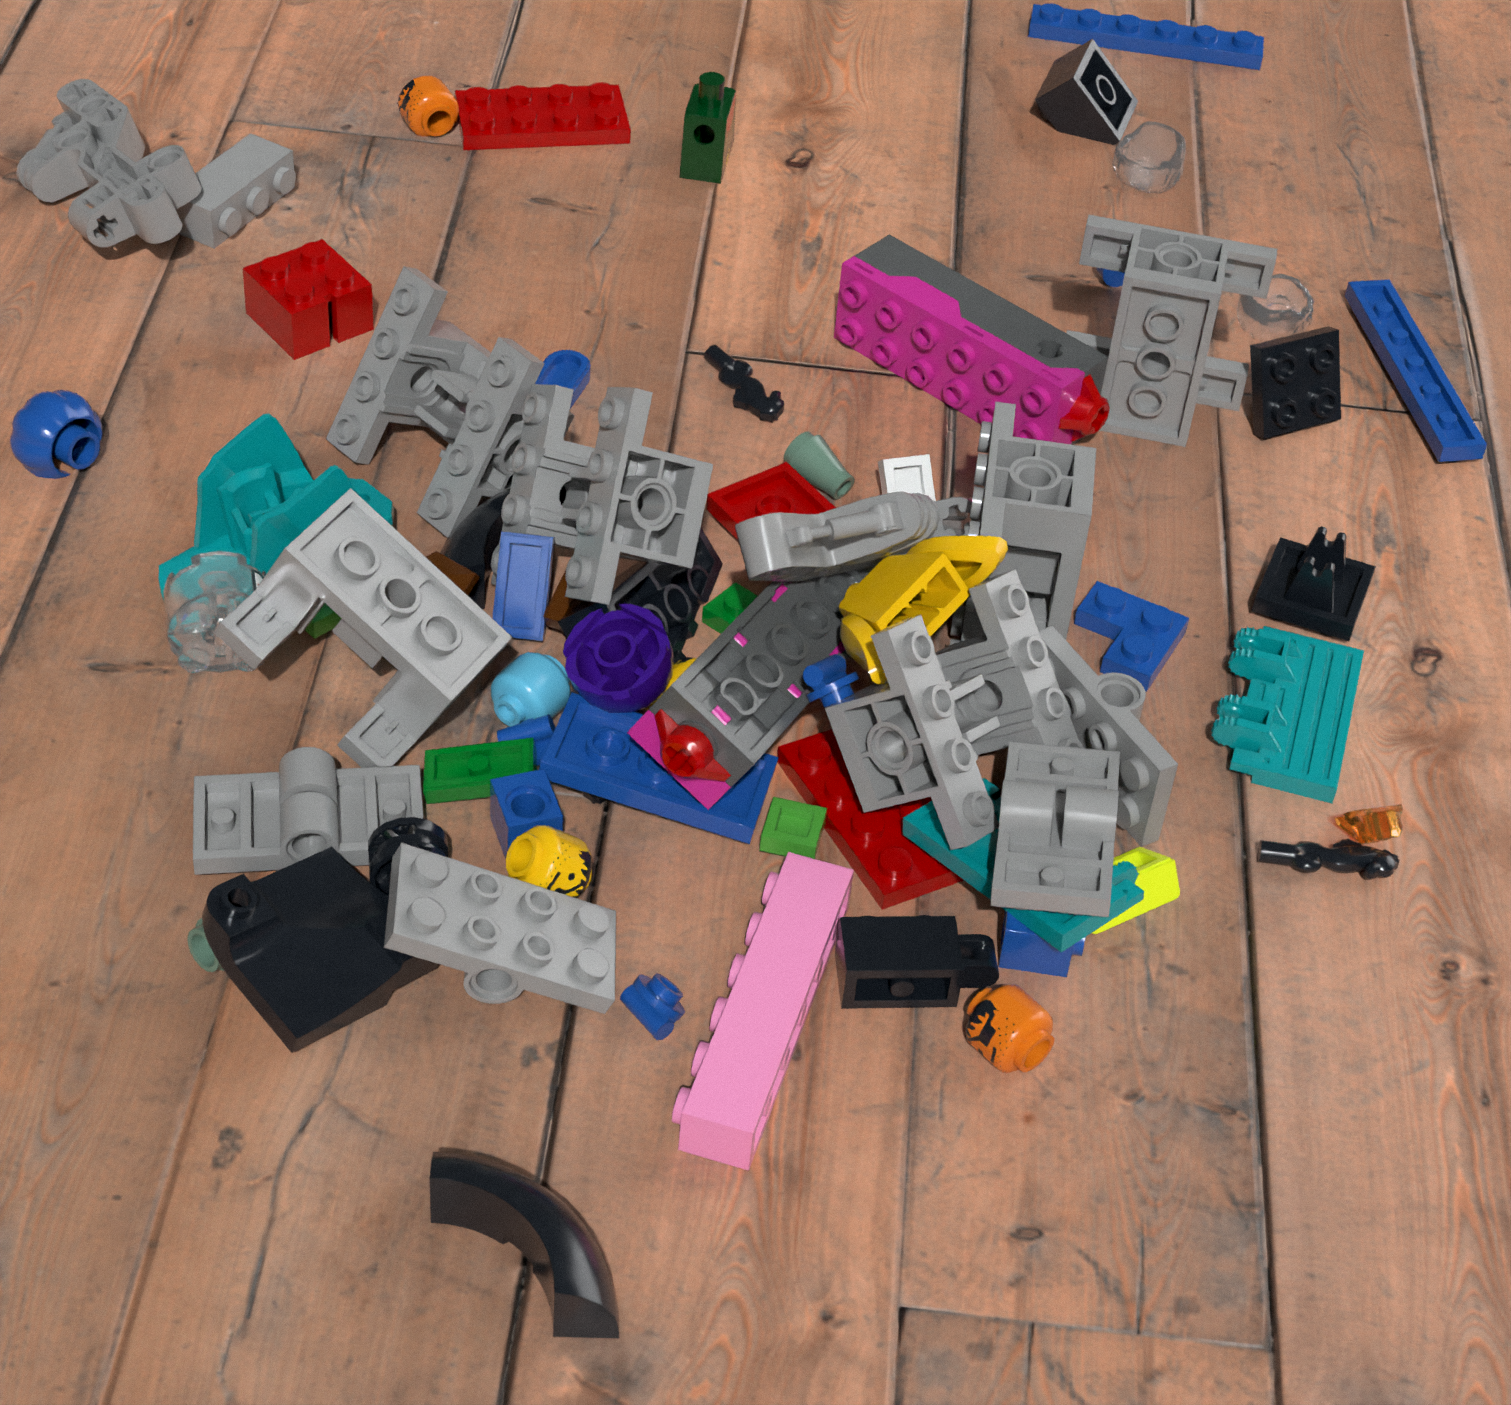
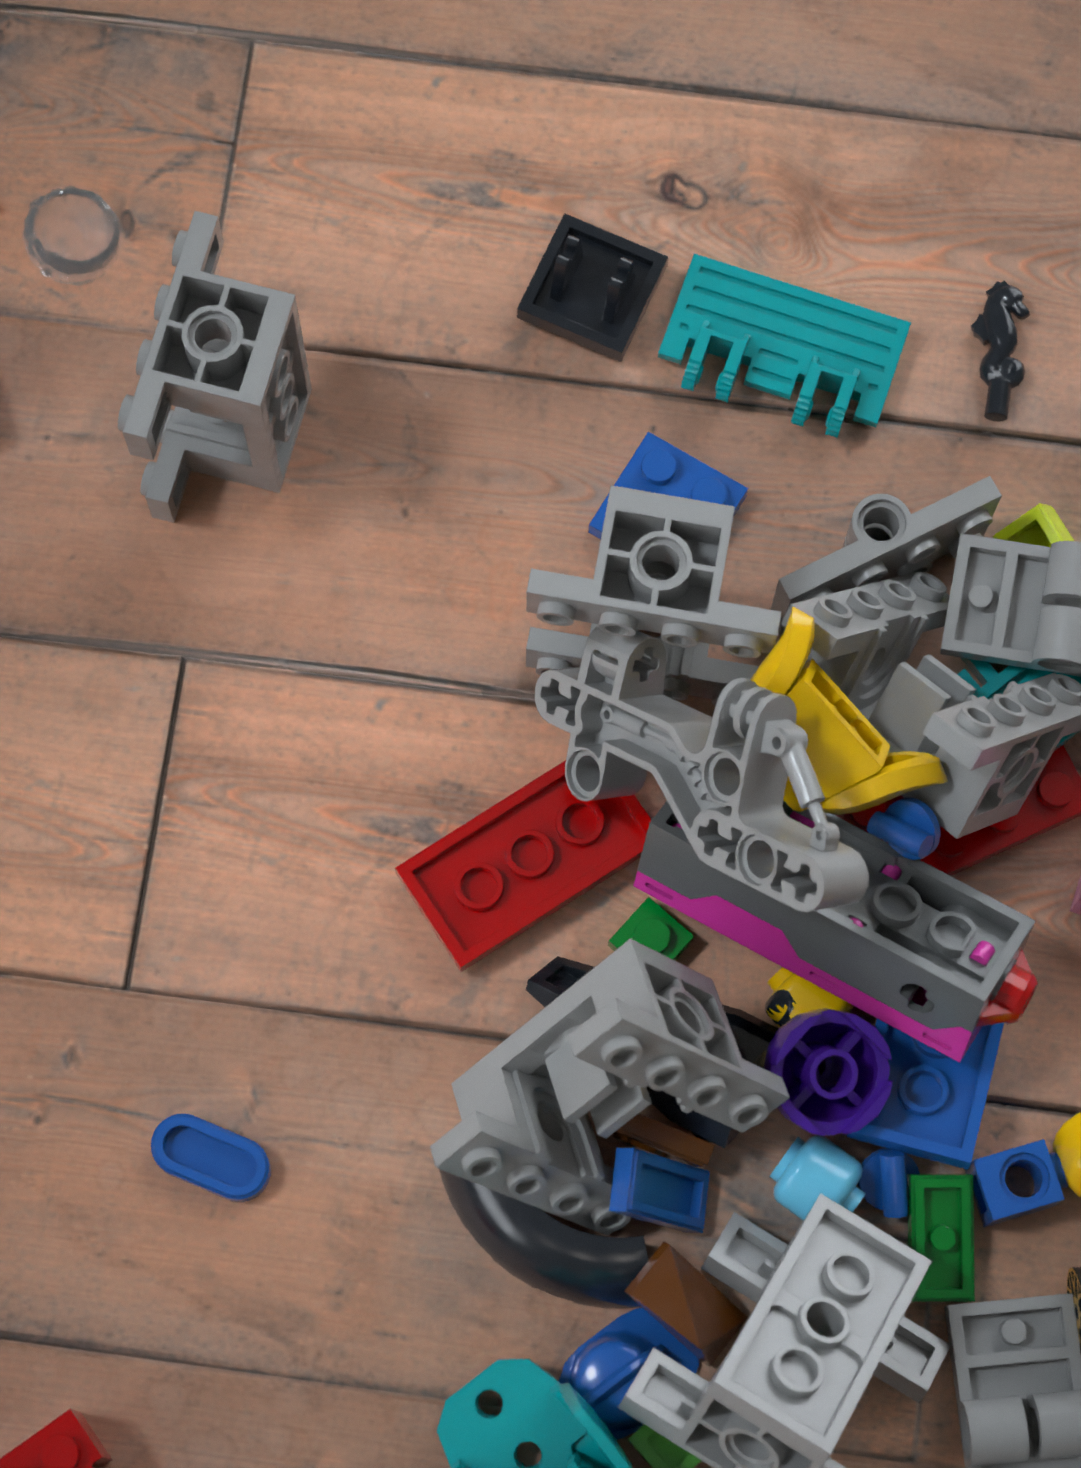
camera: 85 degrees left, 30 degrees up
(441, 380) = (333, 1254): light grey piece -> none
(748, 391) = (232, 907): black animal -> none
(793, 828) = (1011, 884): bright green plate -> none
(818, 464) = (387, 830): sand green cone -> none
(907, 474) = (421, 725): white plate -> none
(968, 344) = (187, 623): dark pink piece -> none
(1295, 382) = (250, 236): black plate -> none
(1372, 824) = (959, 295): clear orange piece -> none
(1415, 371) = (174, 95): blue plate -> none

